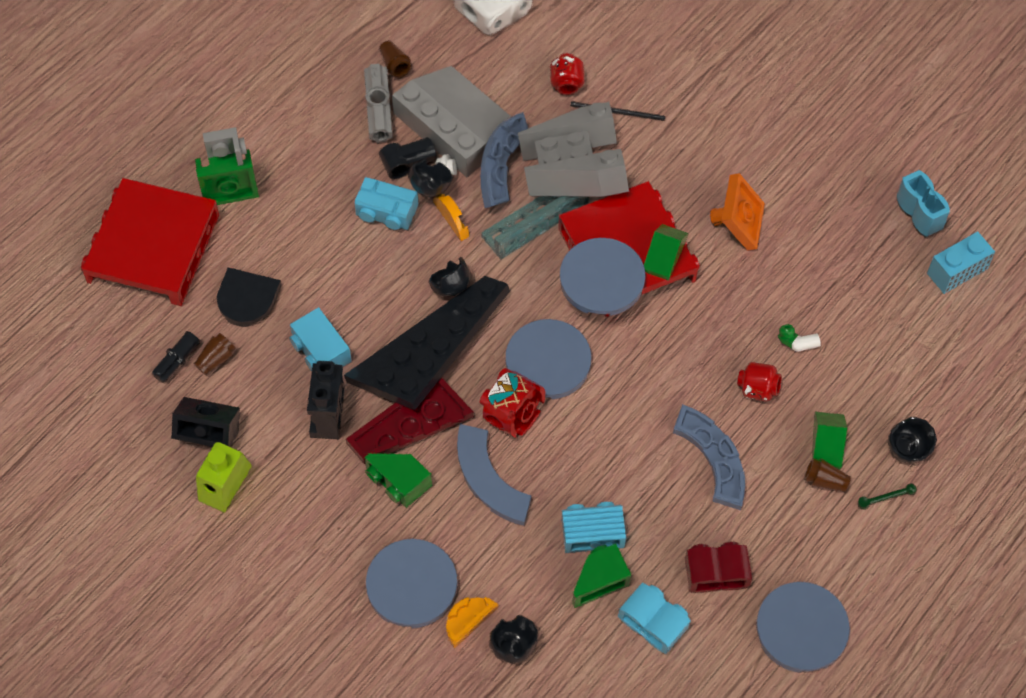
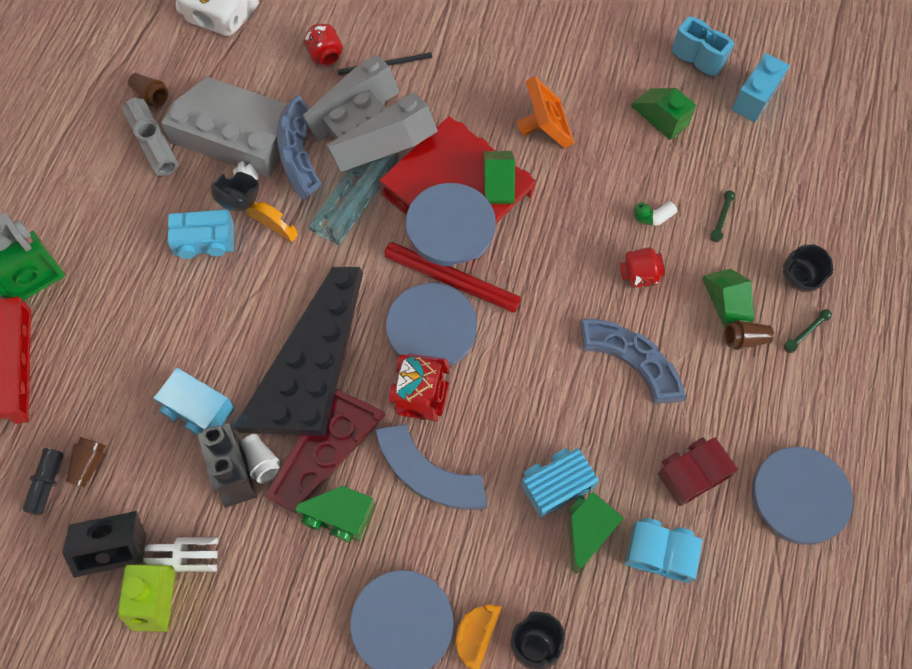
camera: 25 degrees left, 5 degrees up
(246, 296) = (94, 384): black tile -> none
(262, 457) = (181, 553): none -> white arm
(354, 410) = (260, 460): none -> white cone
(399, 158) = (196, 183): black piece -> none
(451, 280) = (300, 284): black hair -> none
(587, 325) = (453, 277): none -> red axle
(848, 381) = (717, 235): none -> dark green hinge
(858, 250) = (666, 110): none -> green slope

